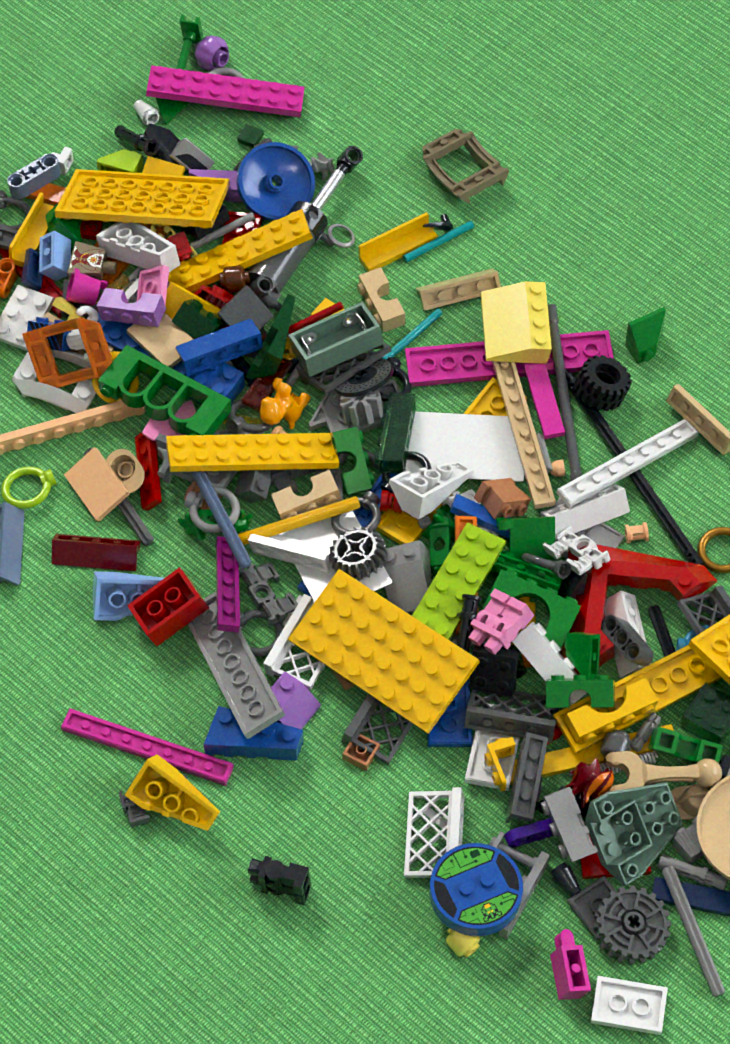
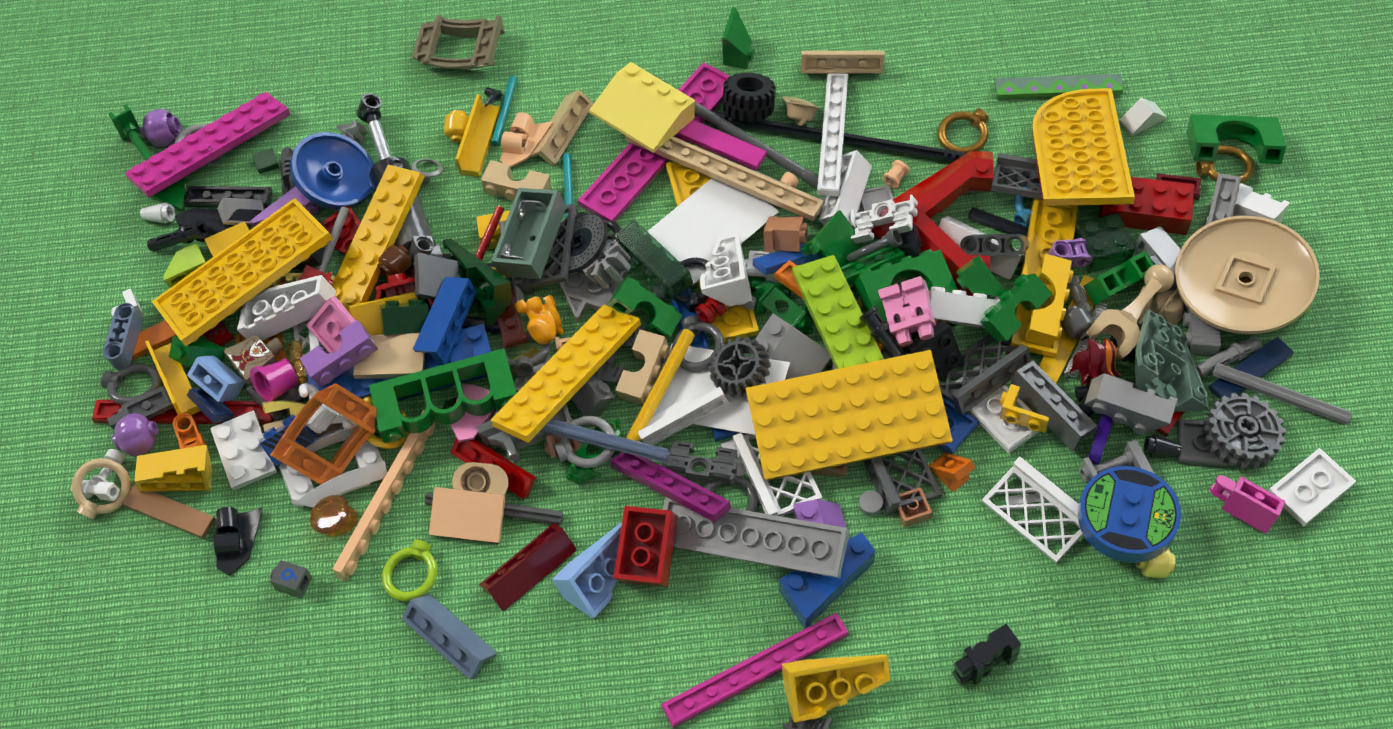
camera: 45 degrees left, 0 degrees up
(24, 409) = (333, 516): none -> clear orange piece
(191, 130) = (212, 195): none -> black tile
(339, 722) = (870, 503): none -> light grey tile
(391, 220) = (455, 125): none -> yellow head
(413, 755) = (952, 470): none -> orange slope
(423, 272) = (522, 139): none -> light nougat panel
(630, 423) = (799, 110): none -> tan piece
(671, 696) = (1072, 250): none -> medium lavender piece

